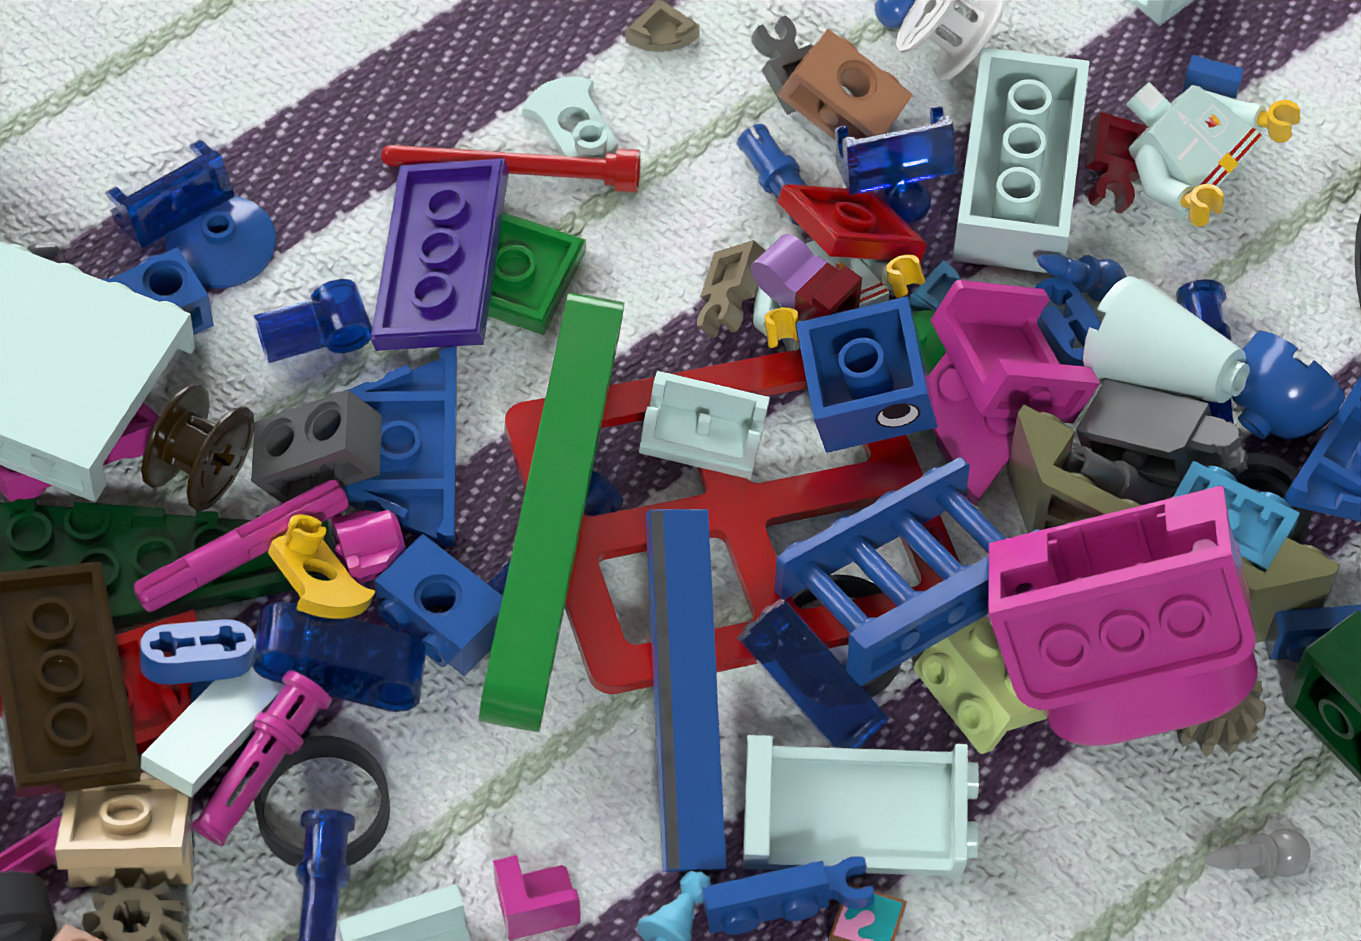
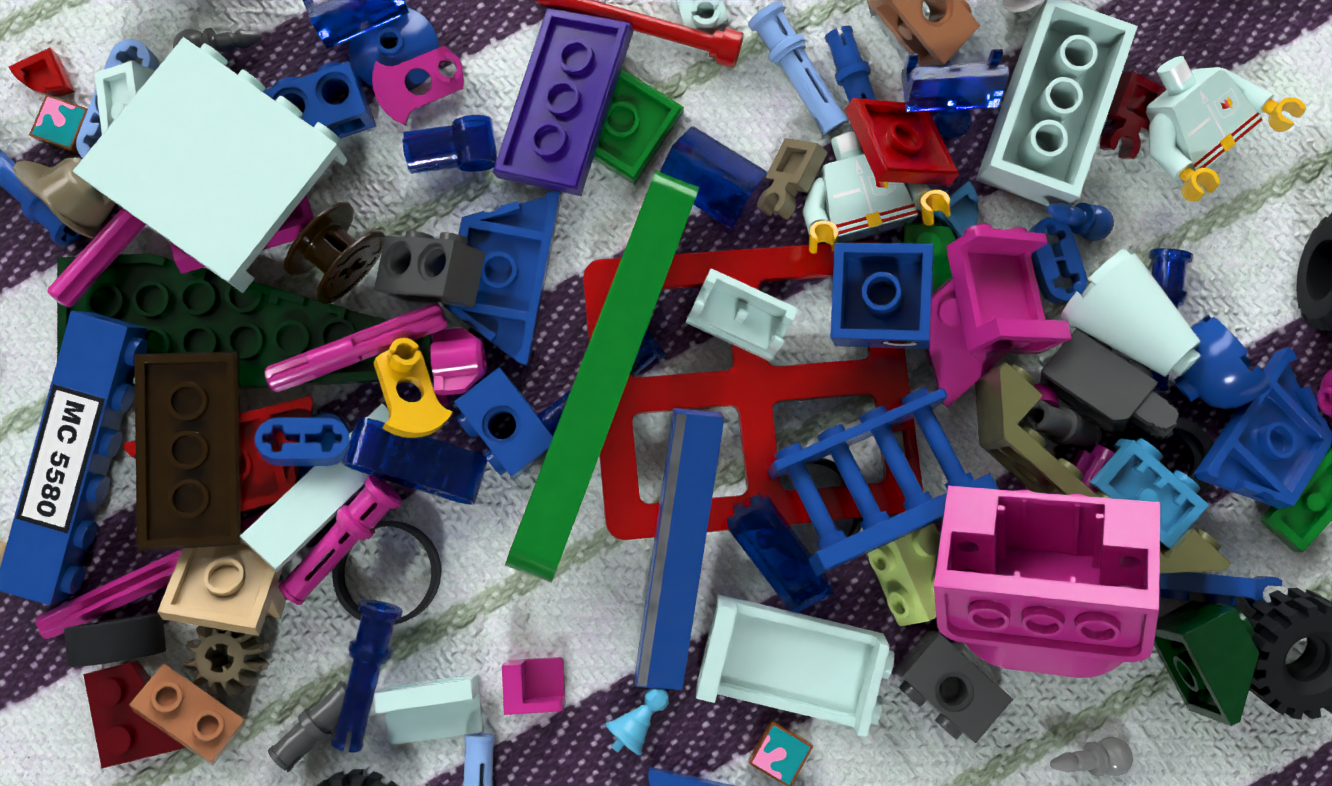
camera: 10 degrees right, 25 degrees up
(236, 288) = (391, 88): none -> dark pink piece
(653, 307) = (721, 173): none -> clear blue panel
(697, 162) = (788, 51): none -> light blue pin
(785, 893) = (727, 728): blue plate -> none
(805, 282) = (852, 200): leg -> none
(1048, 769) = (978, 696): none -> dark grey brick
(1213, 76) = (1231, 54): blue tile -> none

